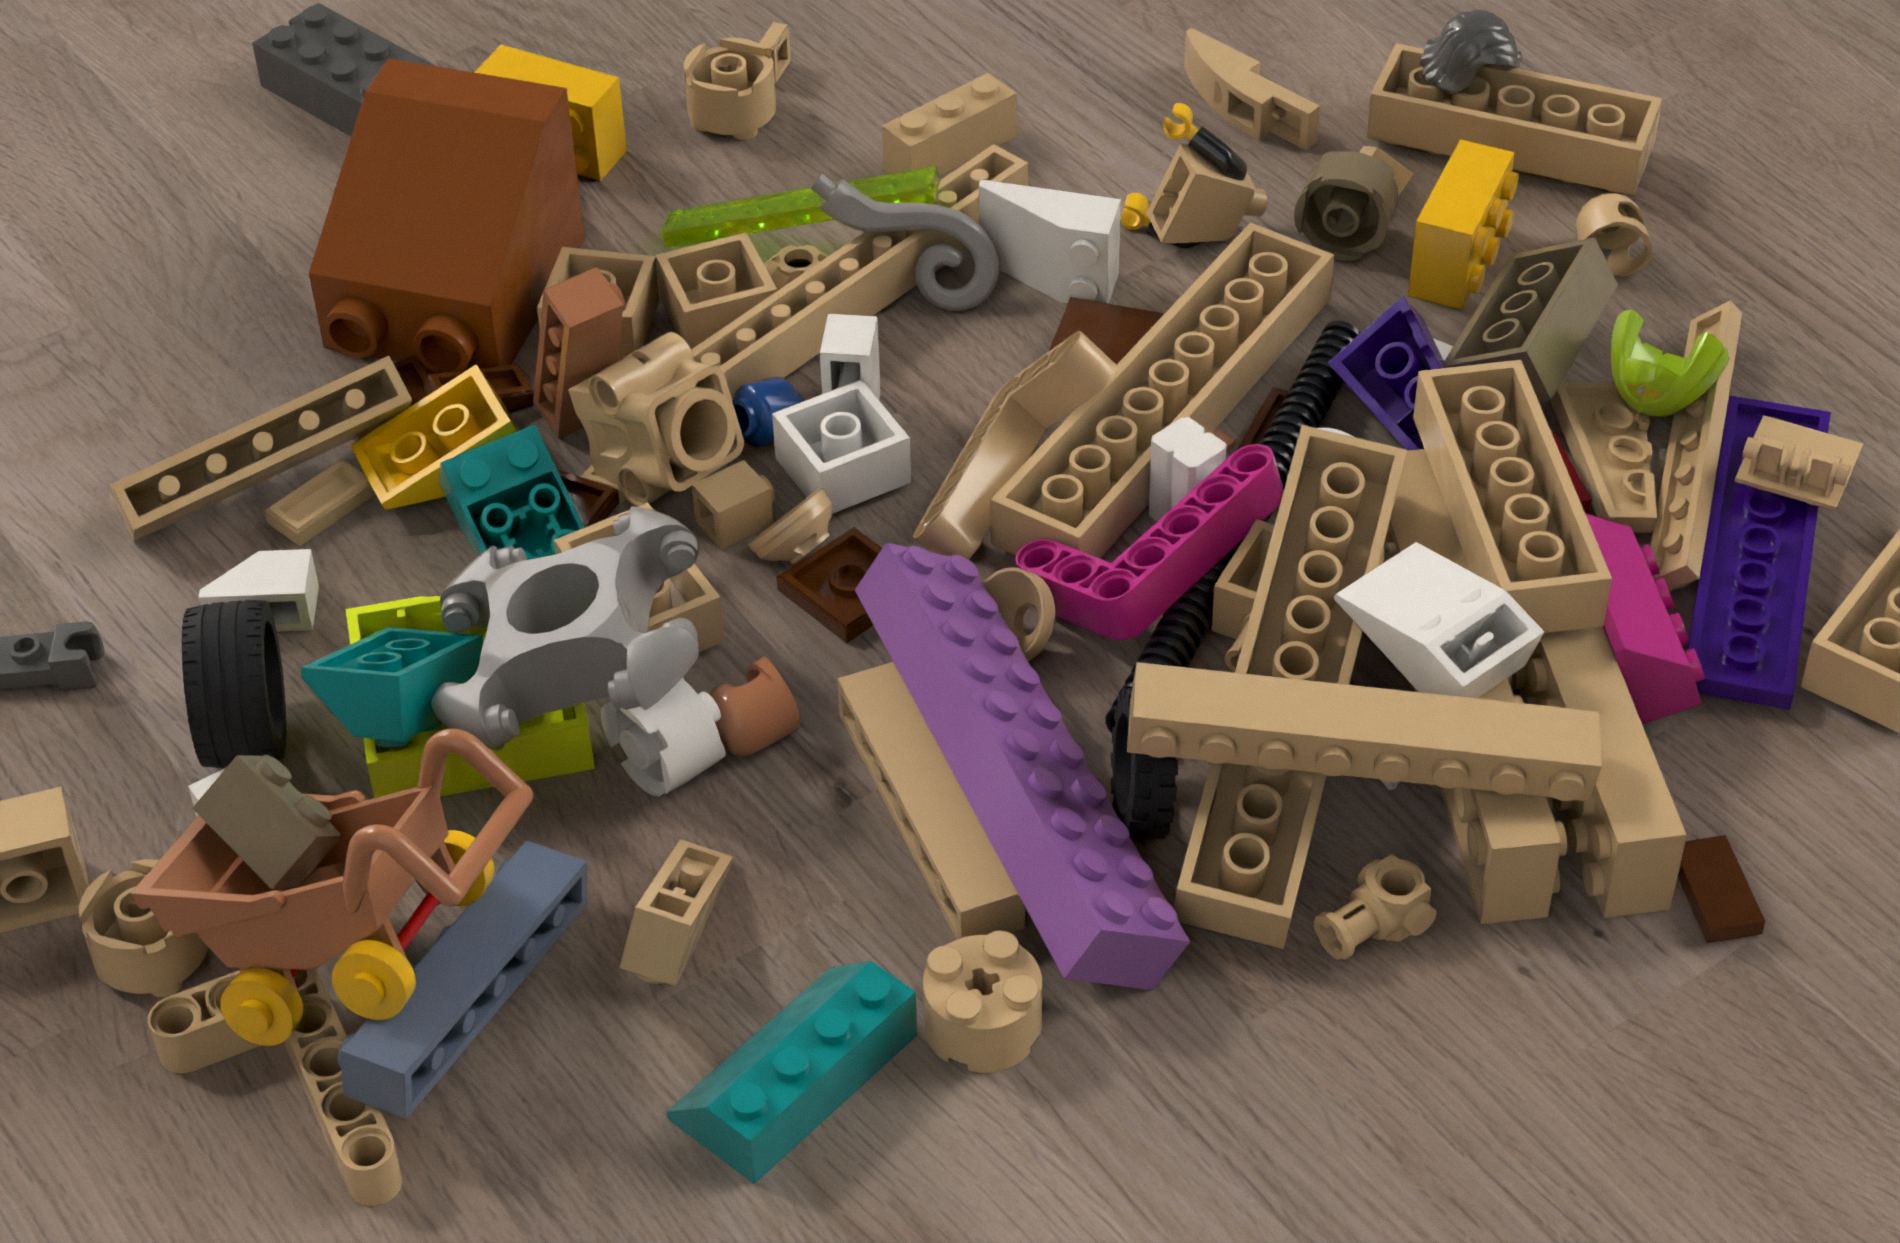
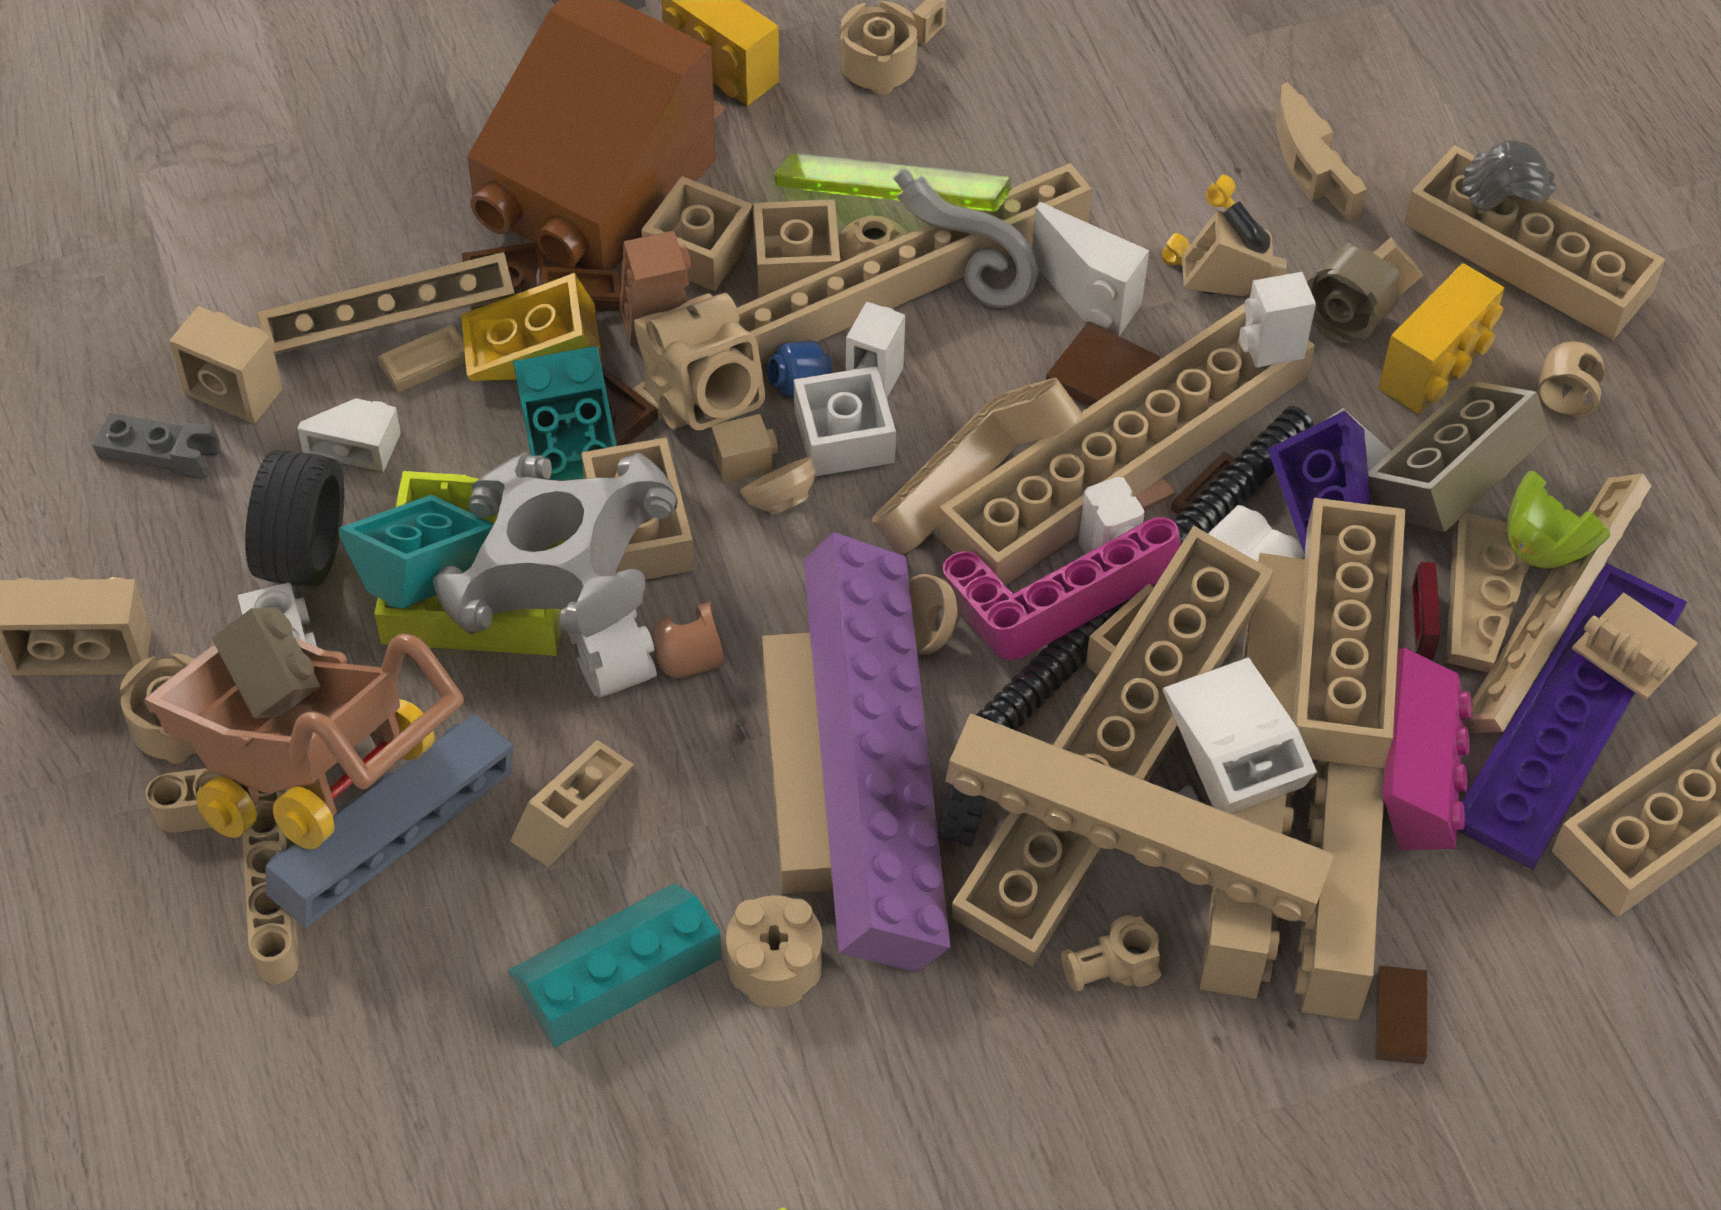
camera: 15 degrees right, 10 degrees up
(87, 552) = (226, 364): none -> tan brick
(827, 583) = (796, 533): reddish brown tile -> none
(951, 127) = (1047, 133): tan brick -> none
(1293, 227) = (1278, 319): none -> white brick

